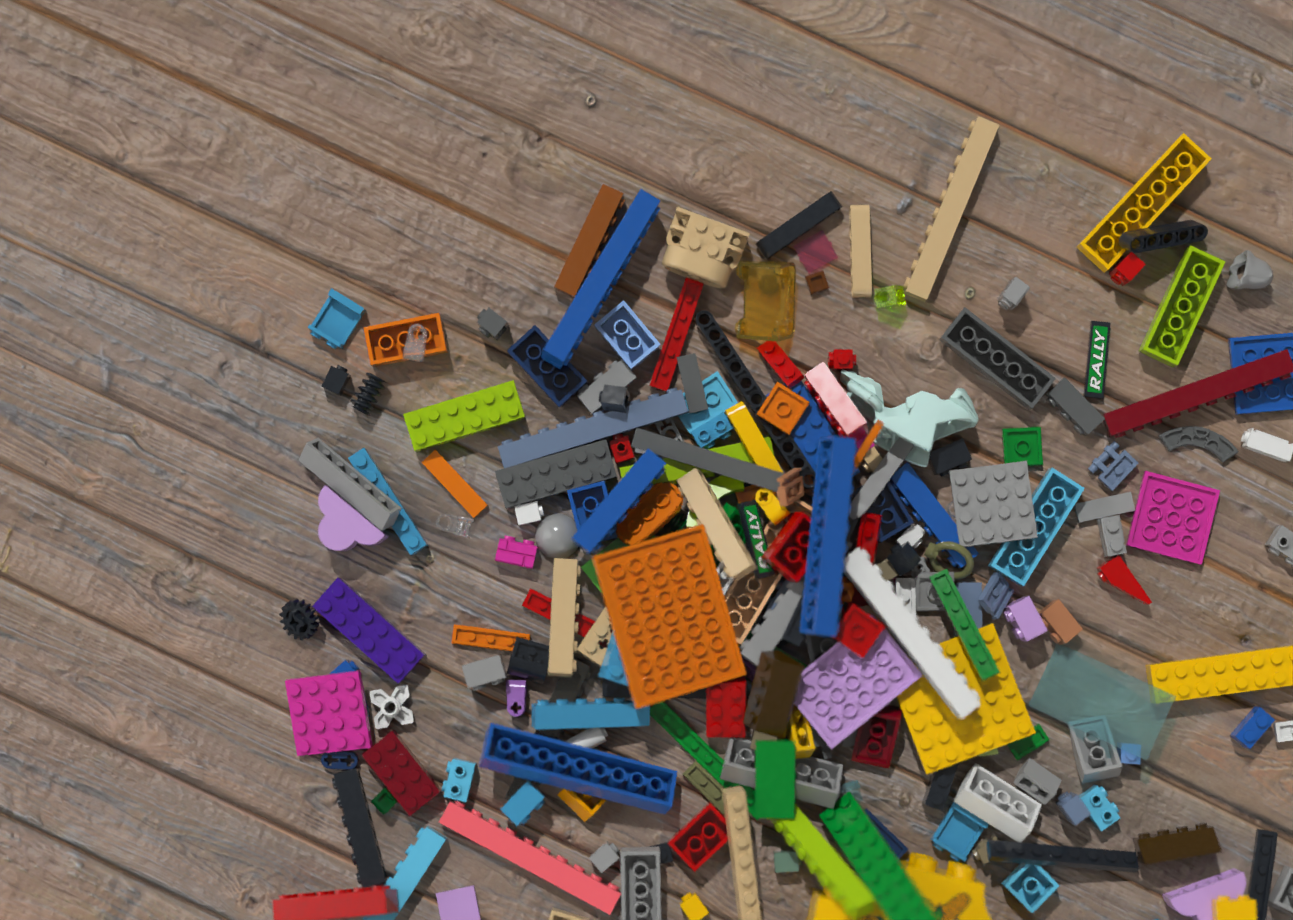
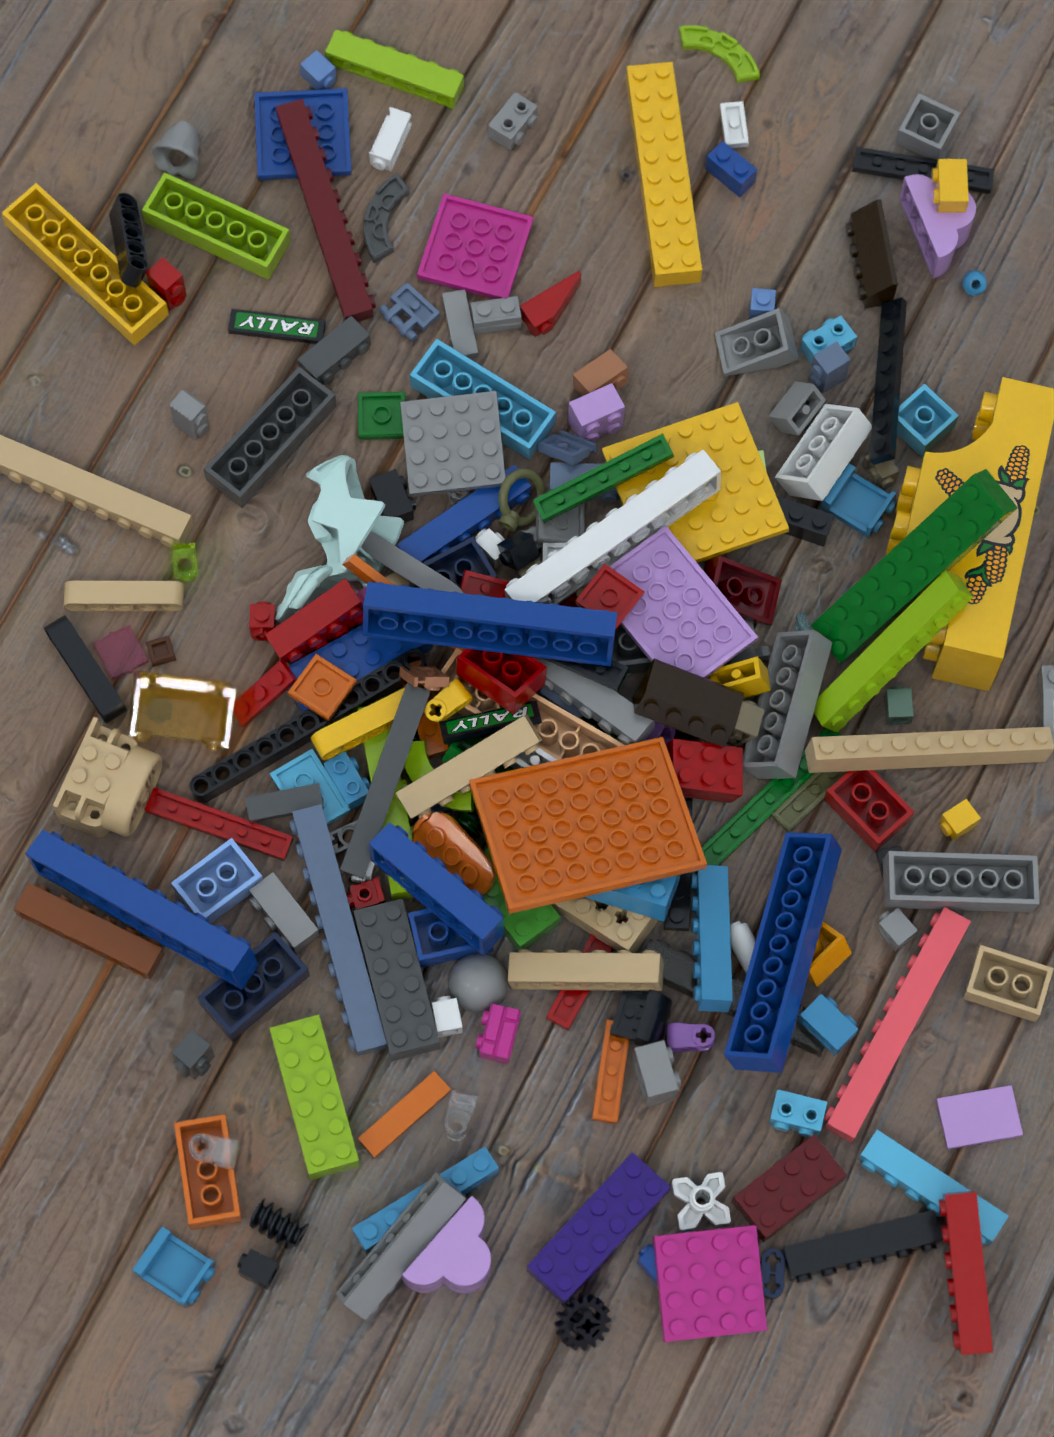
camera: 90 degrees left, 15 degrees down
(384, 801) = (826, 1211): dark green tile -> none
(614, 398) = (300, 895): black brick -> none
(775, 779) = (796, 703): green tile -> none
(1028, 744) = (755, 423): green tile -> none
(1102, 701) = (698, 331): clear light blue piece -> none

